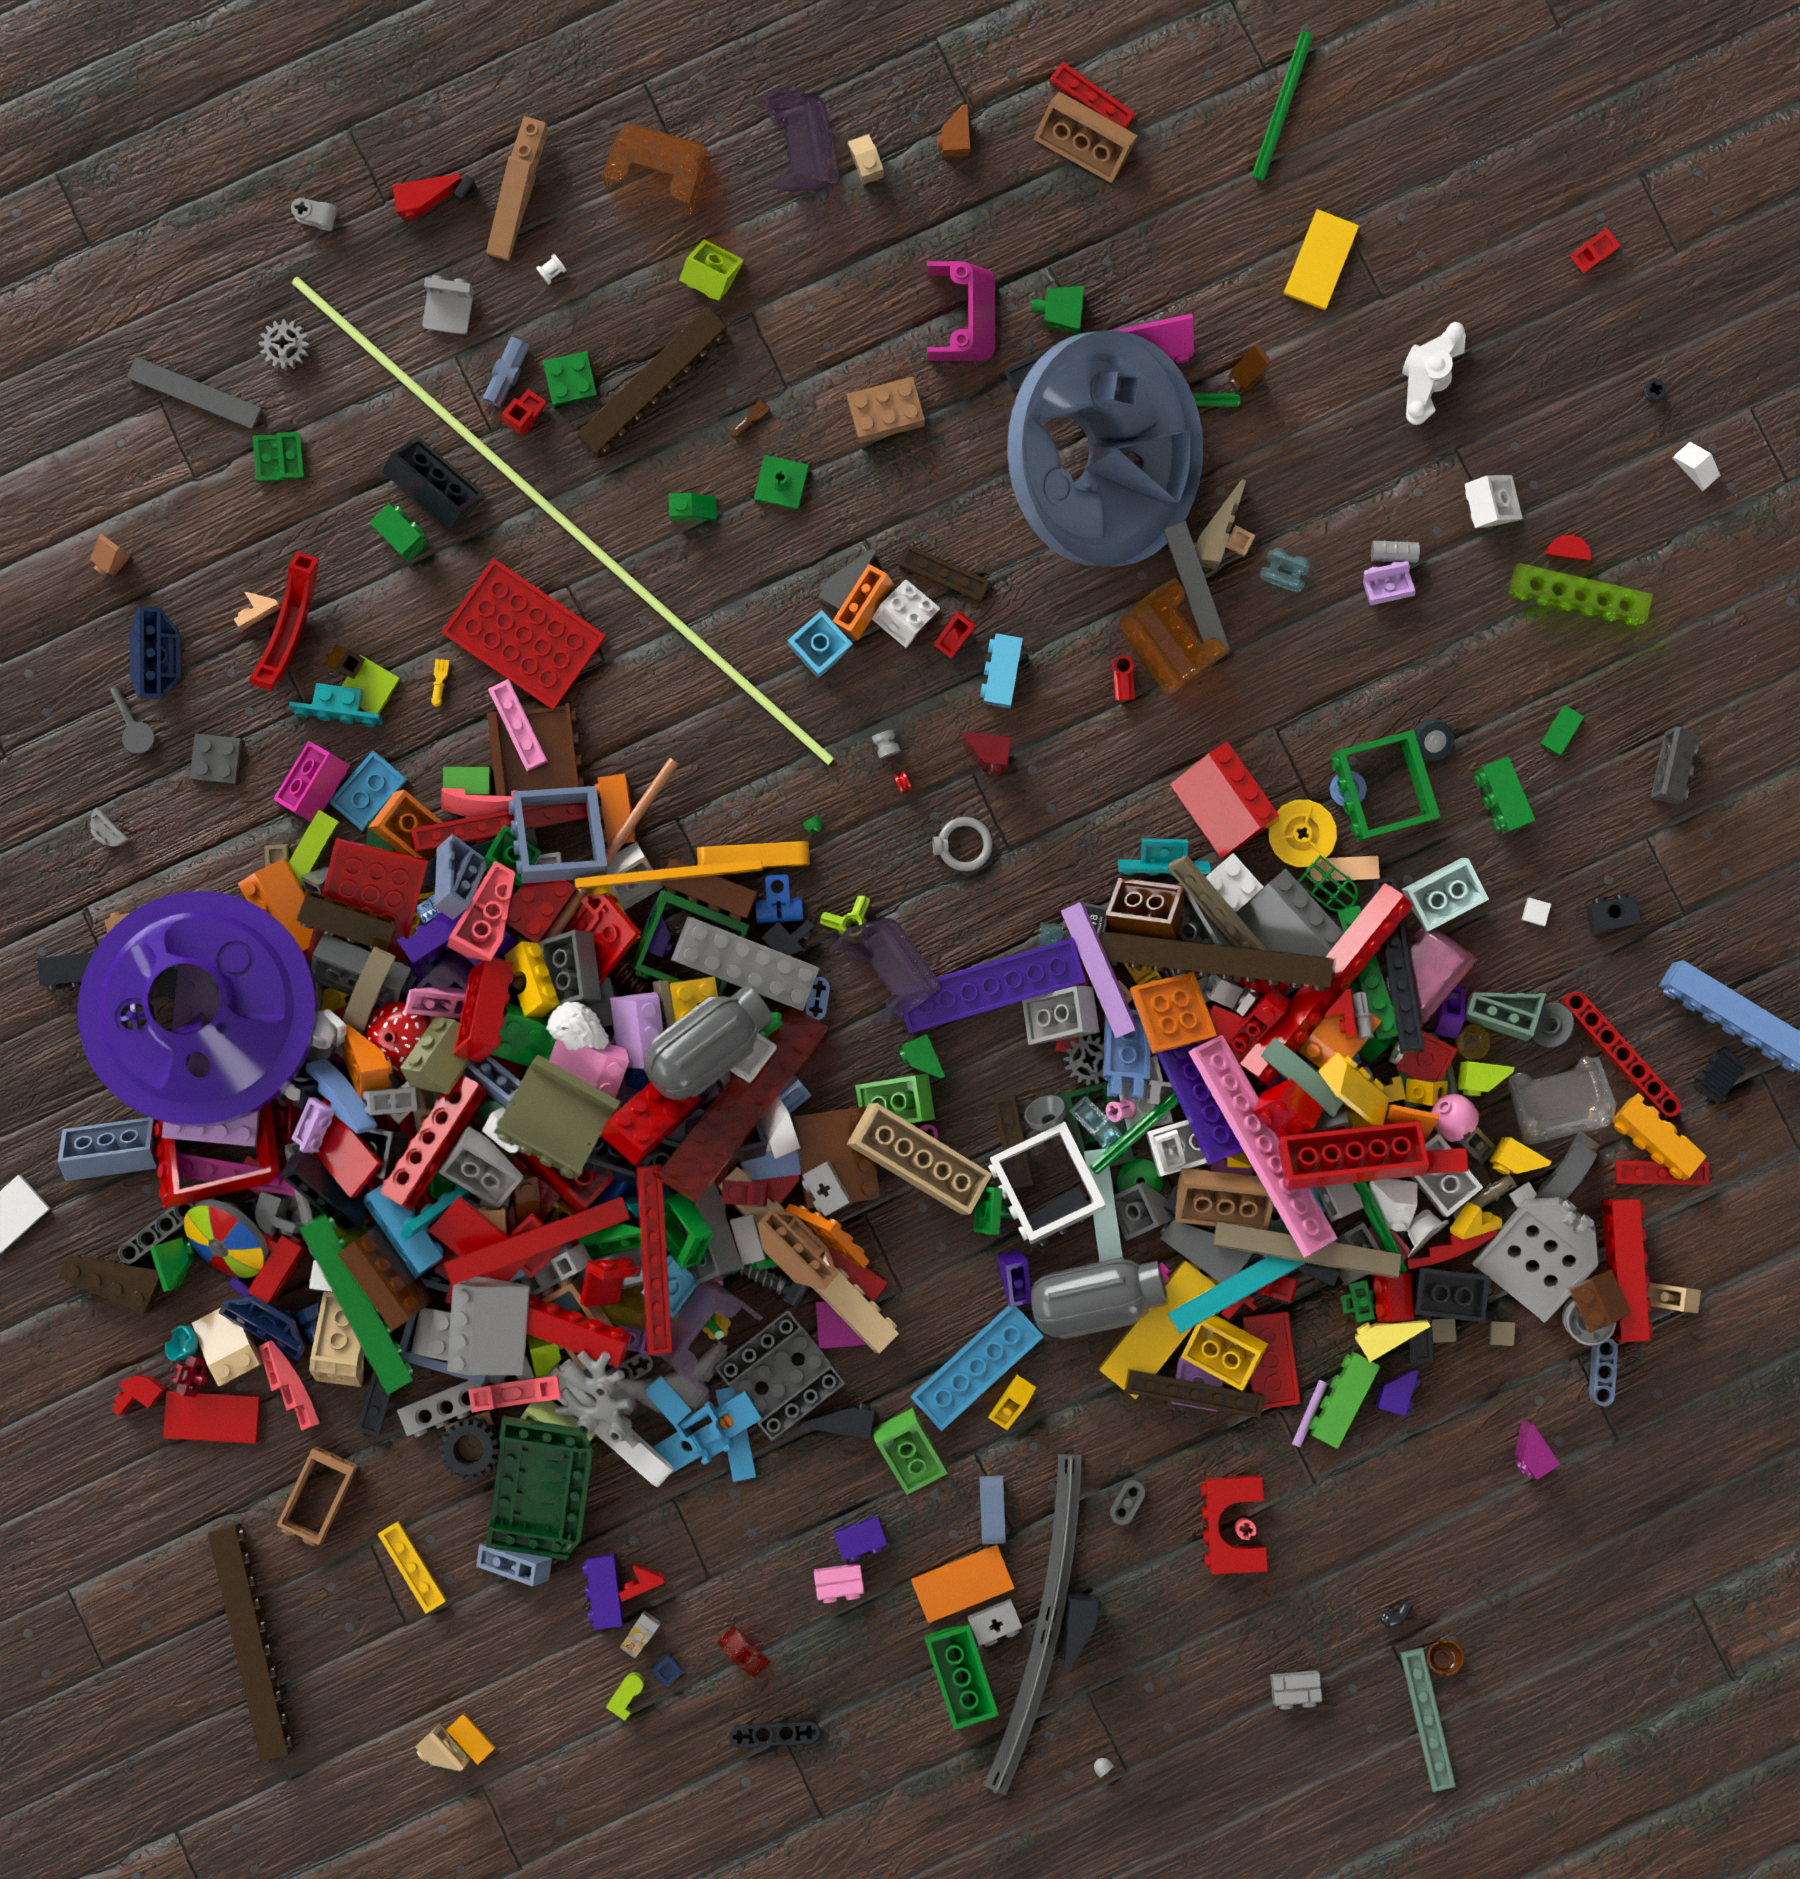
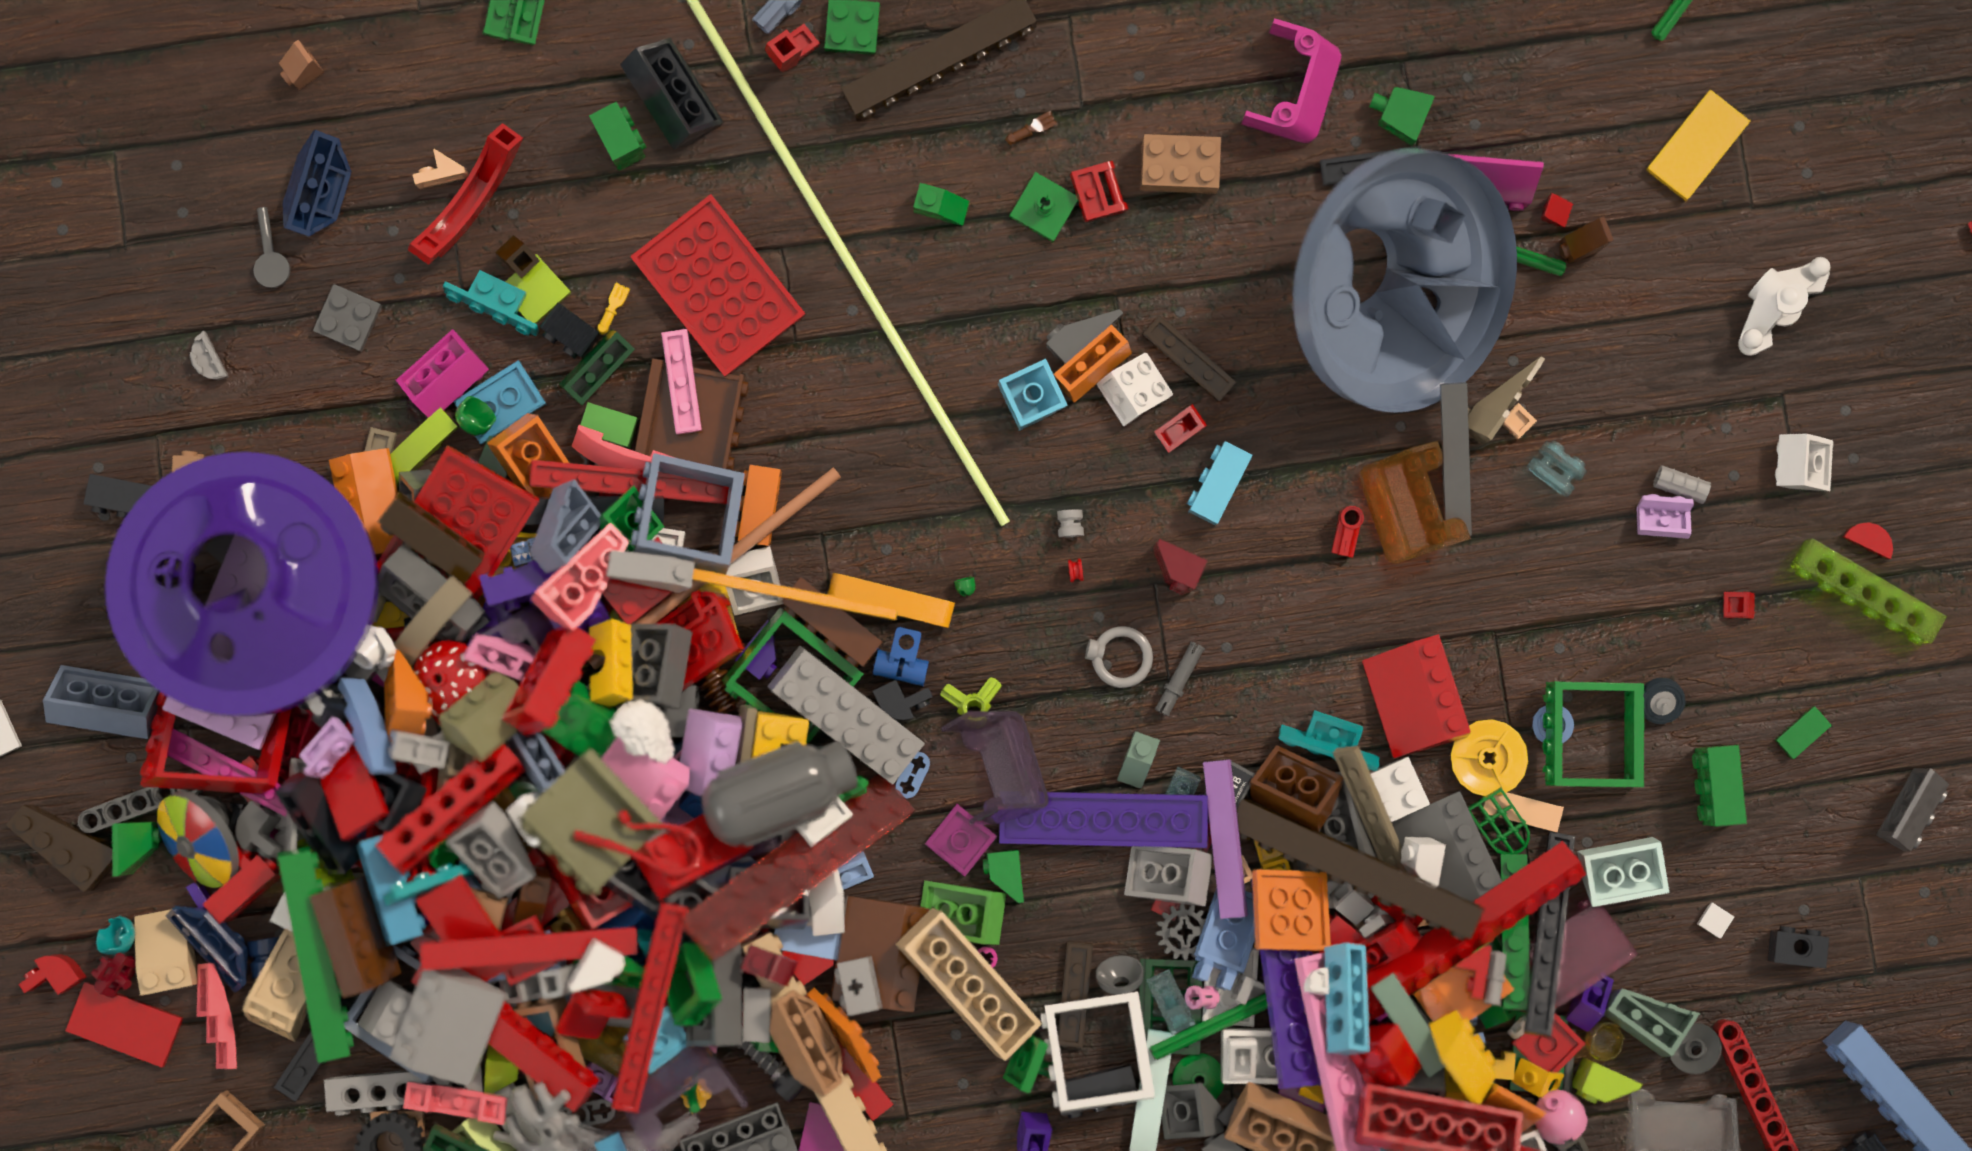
camera: 10 degrees right, 0 degrees up
(350, 808) = (474, 416): none -> green hair
(409, 711) = (570, 331): none -> black brick
(441, 734) = (596, 366): none -> dark green brick
(541, 890) = (651, 570): none -> light grey slope
(585, 1106) = (614, 846): none -> red piece
(598, 1238) = (596, 966): none -> white slope
(818, 459) = (1091, 193): none -> red plate
(875, 1041) = (959, 841): none -> magenta tile
(1005, 926) = (1138, 759): none -> sand green slope
(1017, 856) = (1181, 675): none -> dark grey pin
(1213, 1065) = (1317, 982): none -> white tile
(1218, 352) = (1556, 210): none -> red slope
(1242, 1071) = (1346, 999): none -> medium azure brick
(1271, 933) = (1423, 858): none -> white slope
(1475, 639) = (1739, 605): none -> red slope

